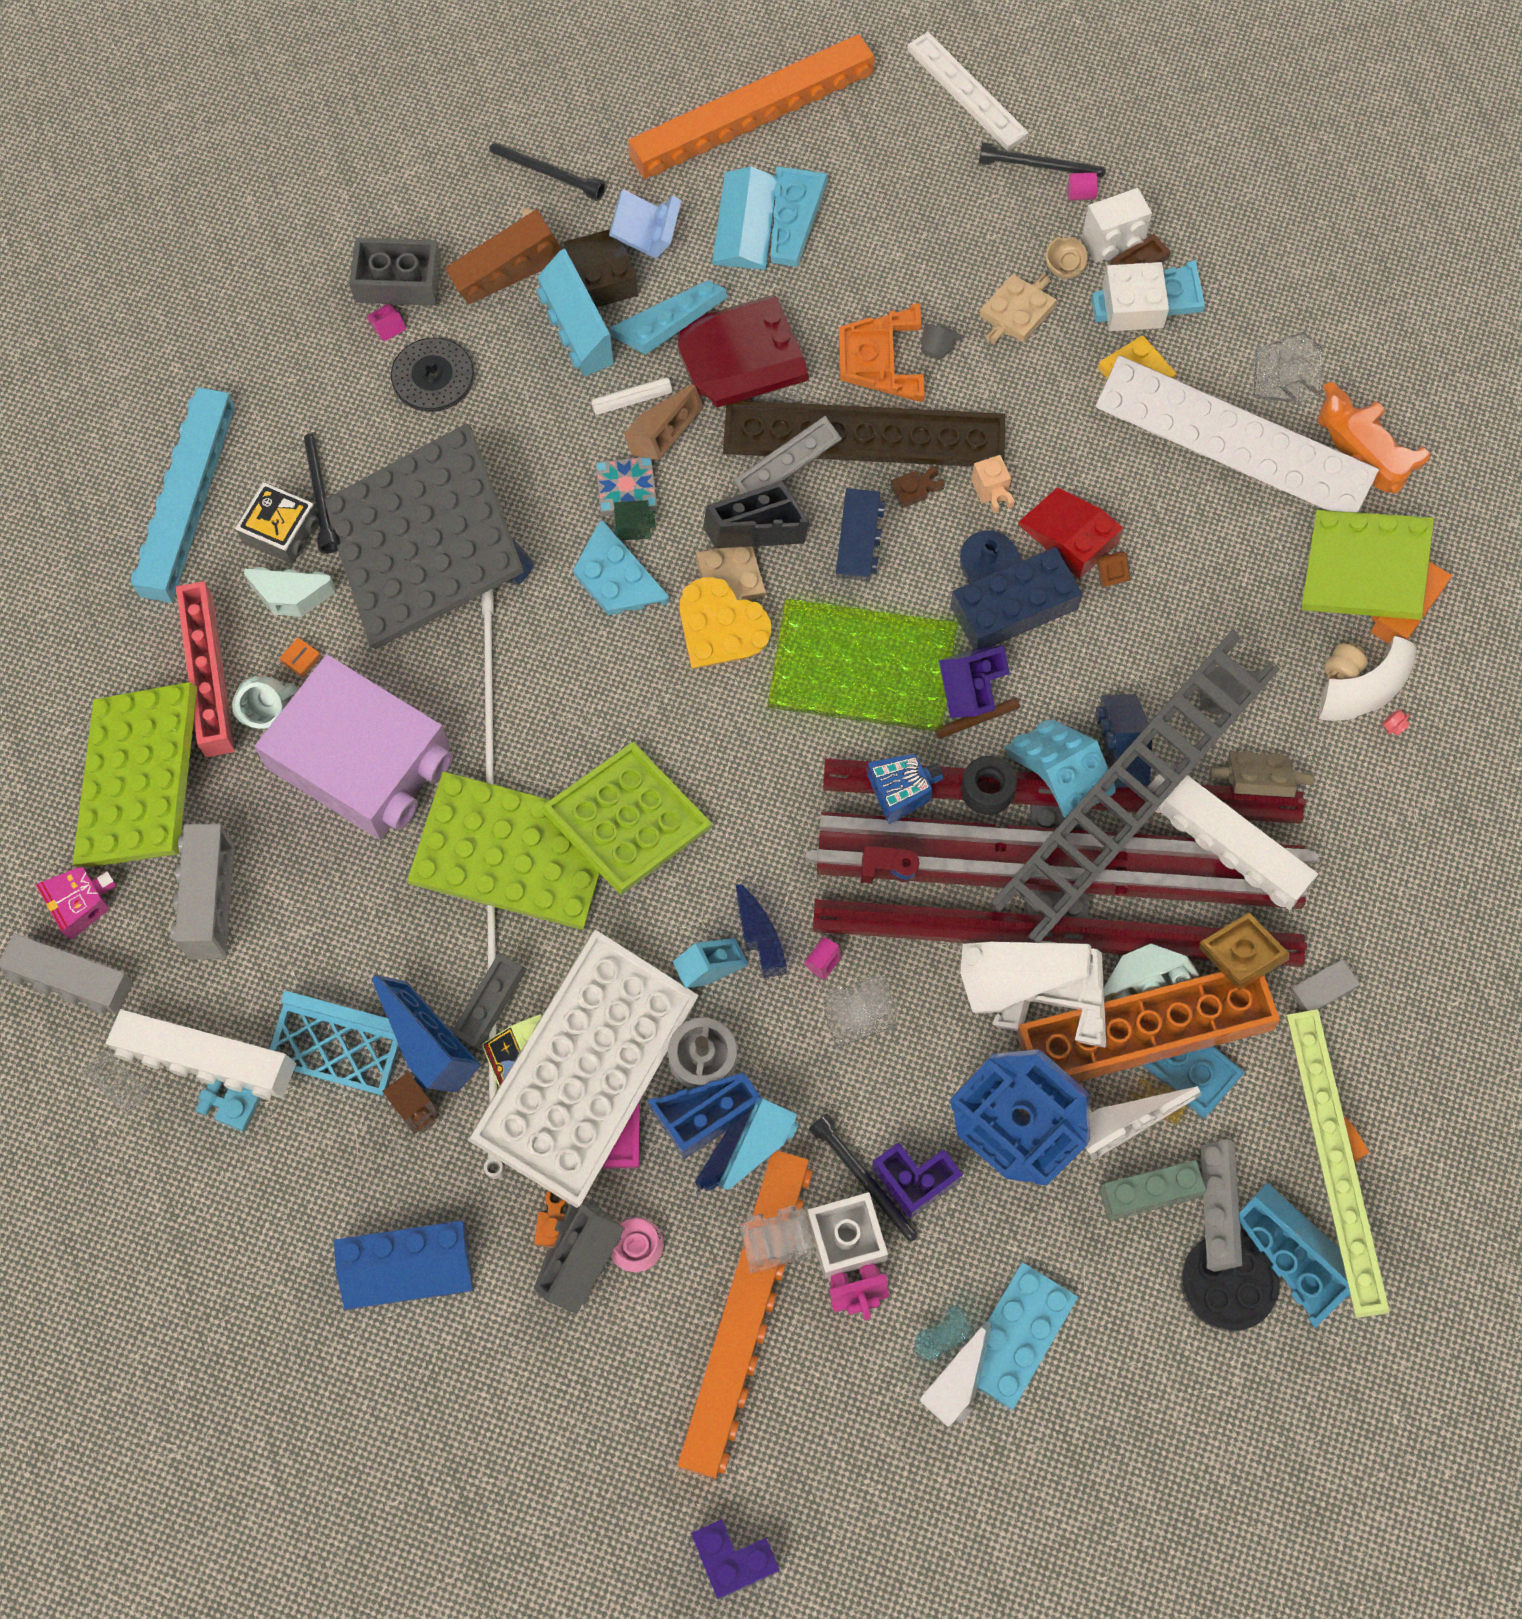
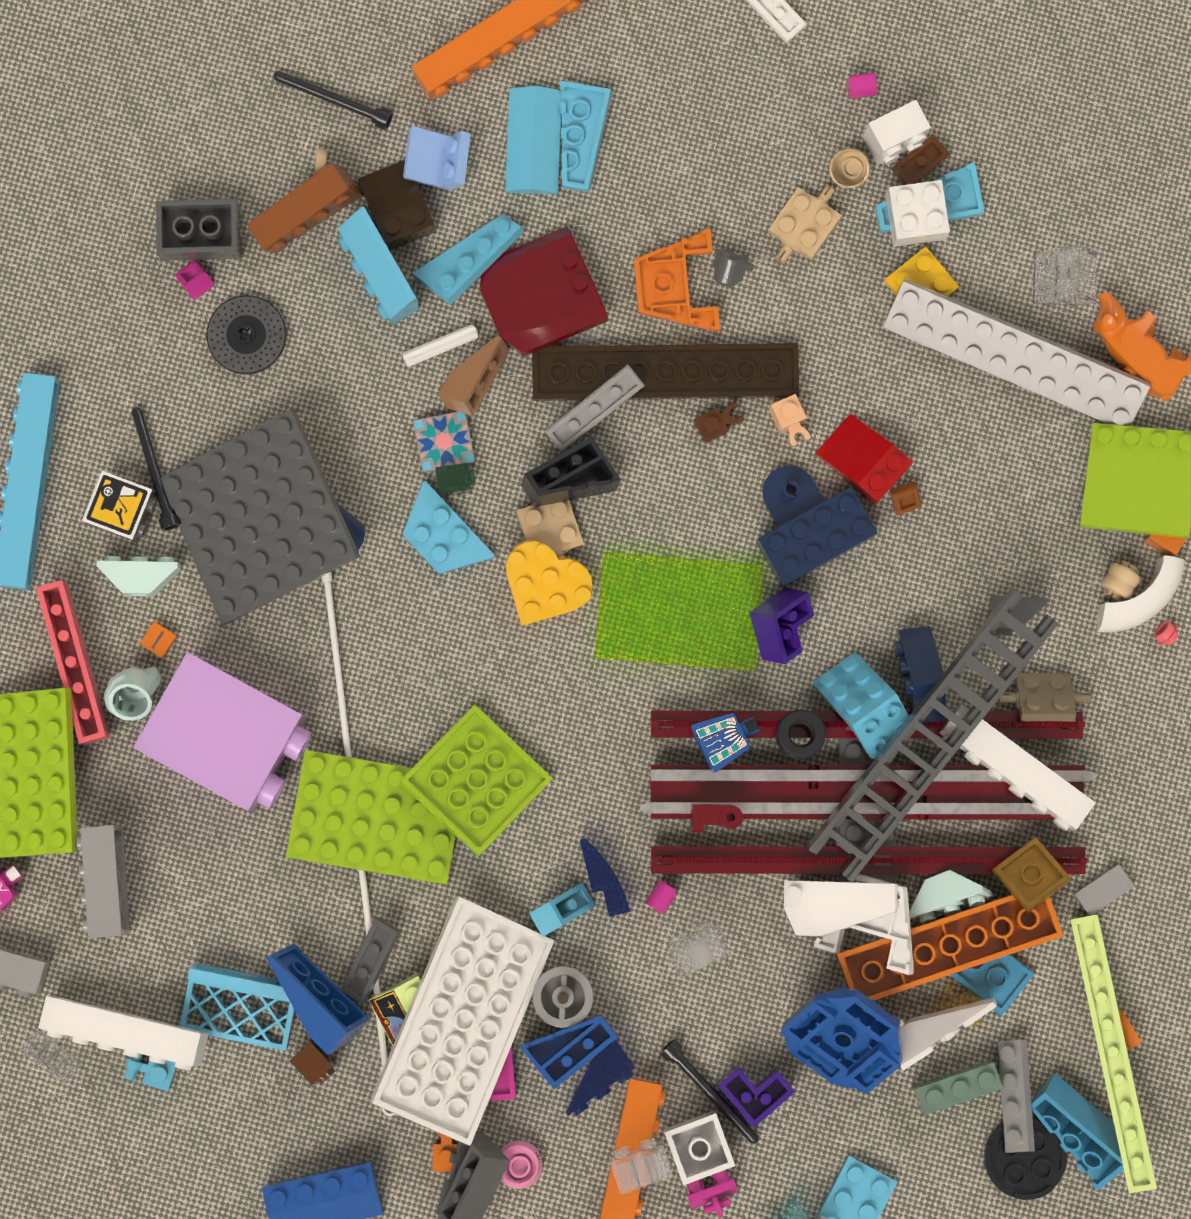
camera: 10 degrees left, 15 degrees up
(762, 1136) = (619, 1076): medium azure slope -> none
(859, 534) = (668, 482): dark blue wedge -> none
(967, 722) = (806, 646): reddish brown bar -> none
(990, 154) = (770, 51): black piece -> none

